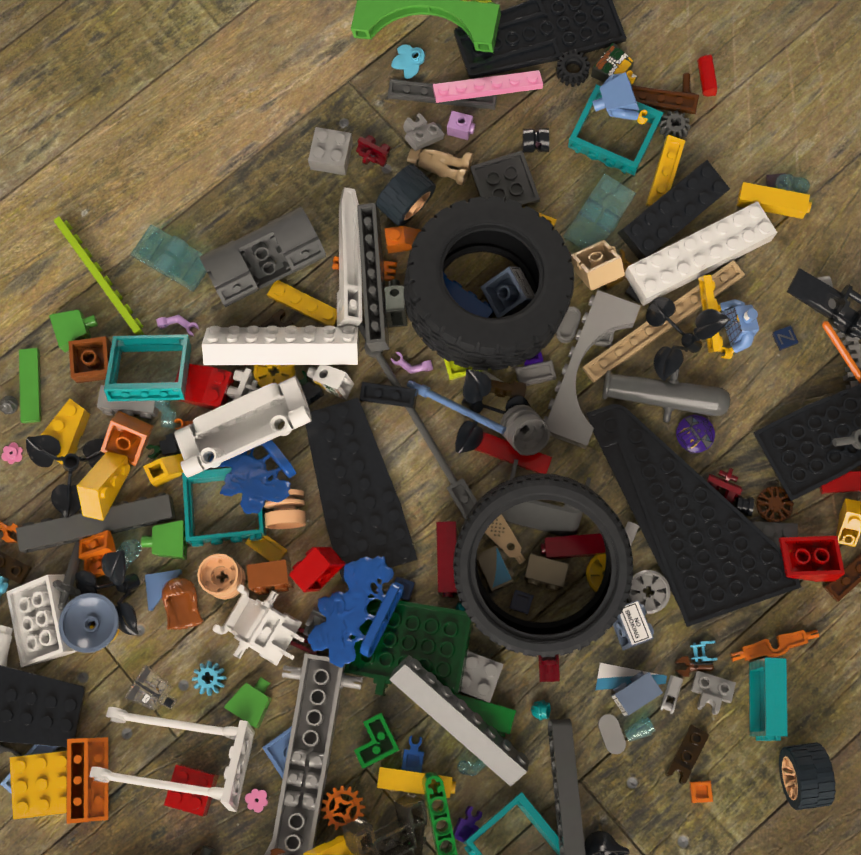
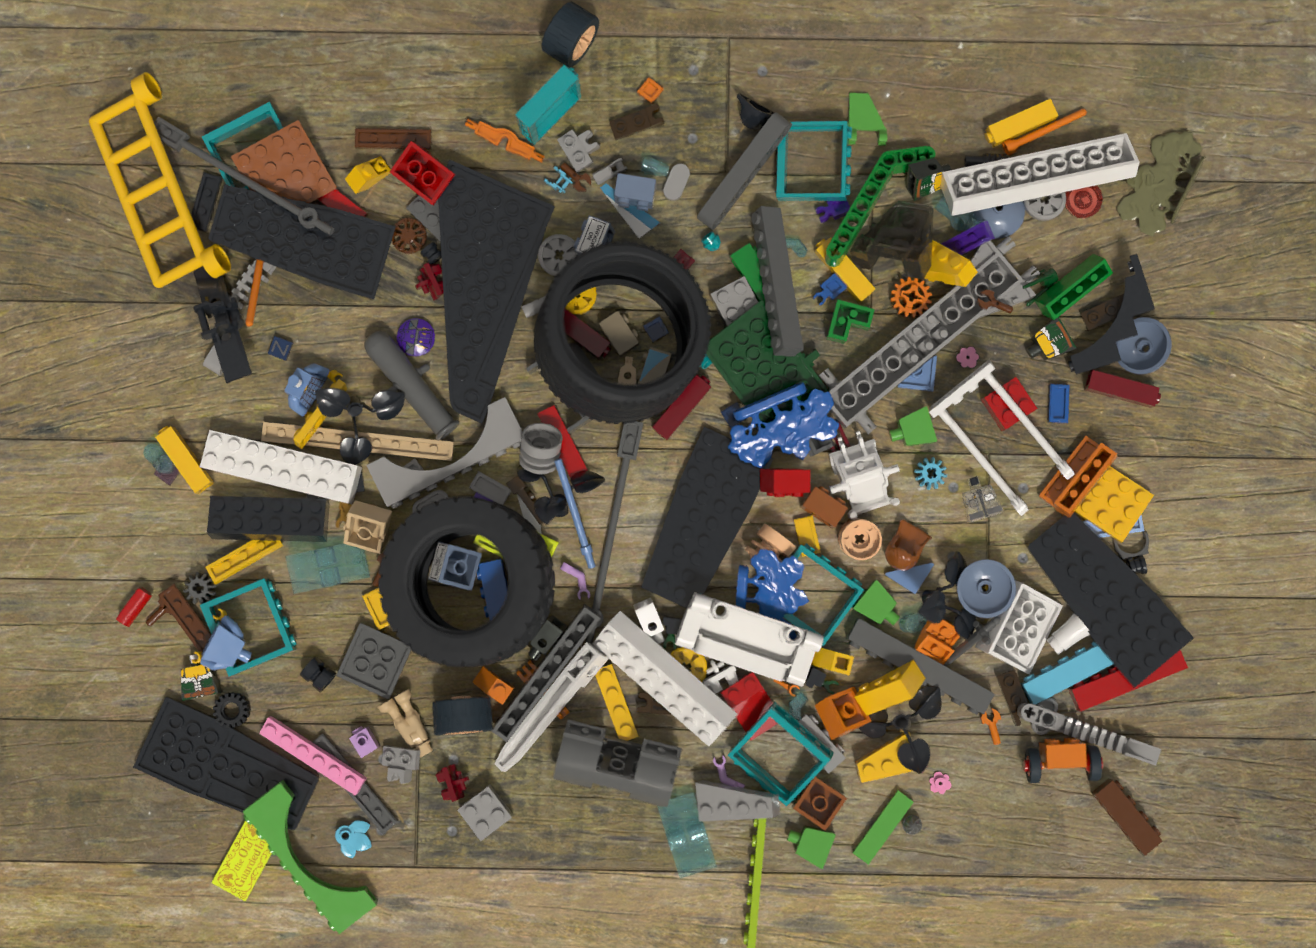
camera: 145 degrees left, 10 degrees up
(152, 828) = (1058, 403): none -> blue tile
(158, 300) = (727, 802): none -> light grey wedge
(388, 395) = (616, 569): black tile -> none

